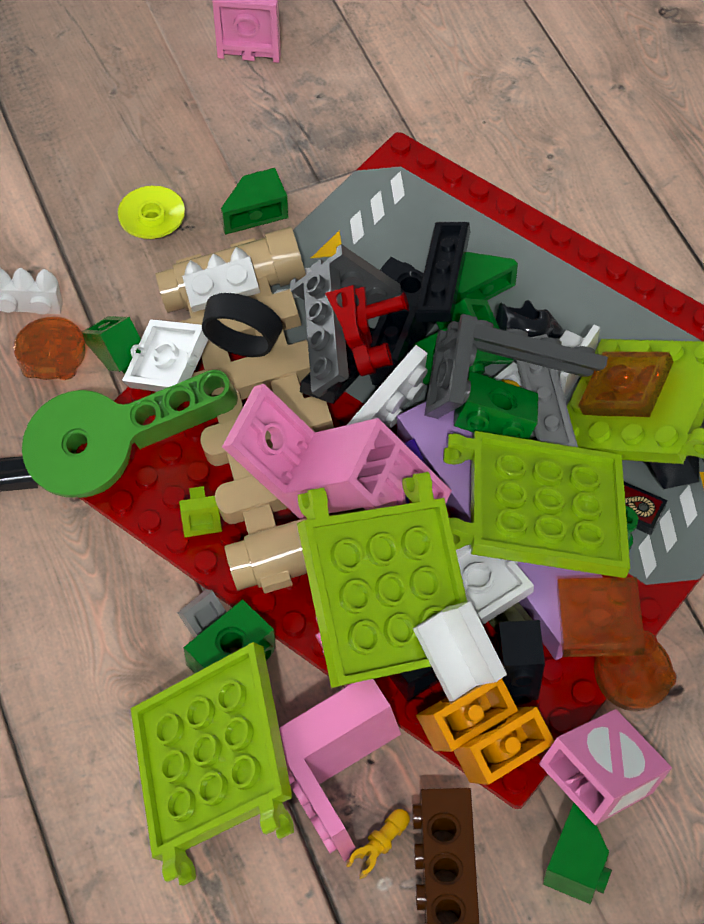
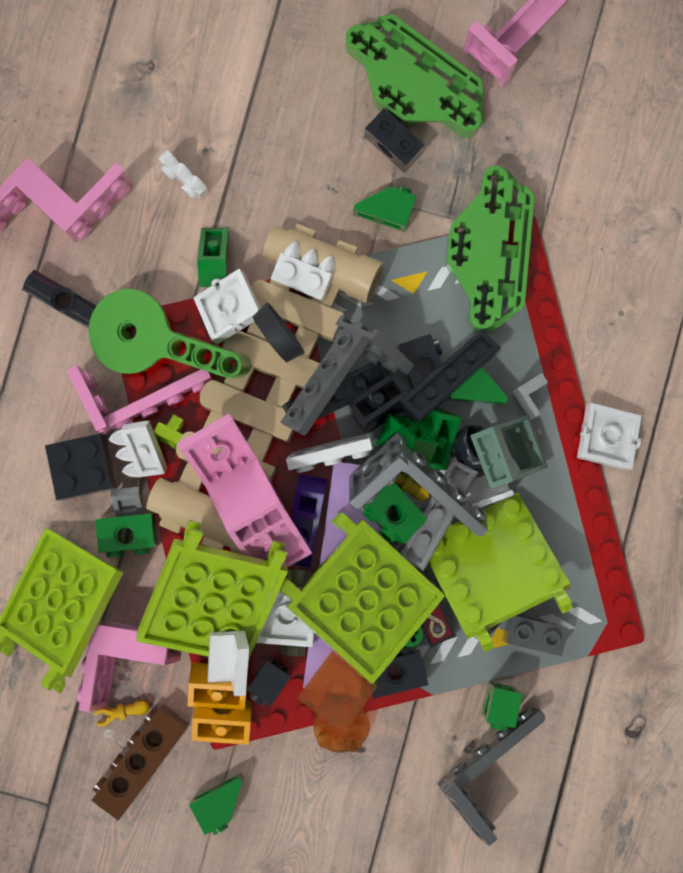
camera: 35 degrees right, 30 degrees up
(49, 349) = (172, 230): clear orange tile -> none
(110, 546) = (147, 406): none -> bright pink bracket
(124, 616) = (80, 467): none -> black brick
(151, 212) = (312, 152): neon yellow dish -> none
(180, 544) = (140, 448): none -> white plate
(191, 94) = (415, 84): none -> bright green connector
(214, 147) = (394, 140): none -> black brick
(356, 328) = (343, 395): red piece -> none
(371, 175) = (487, 255): none -> bright green connector
(535, 247) = (522, 396): none -> light grey panel
(559, 294) = (496, 457): none -> sand green window
(605, 766) = (270, 774): bright pink brick -> none
(627, 384) = (488, 556): clear orange plate -> none
(638, 241) = (609, 436): none -> white plate
(656, 555) = (412, 677): none -> black brick

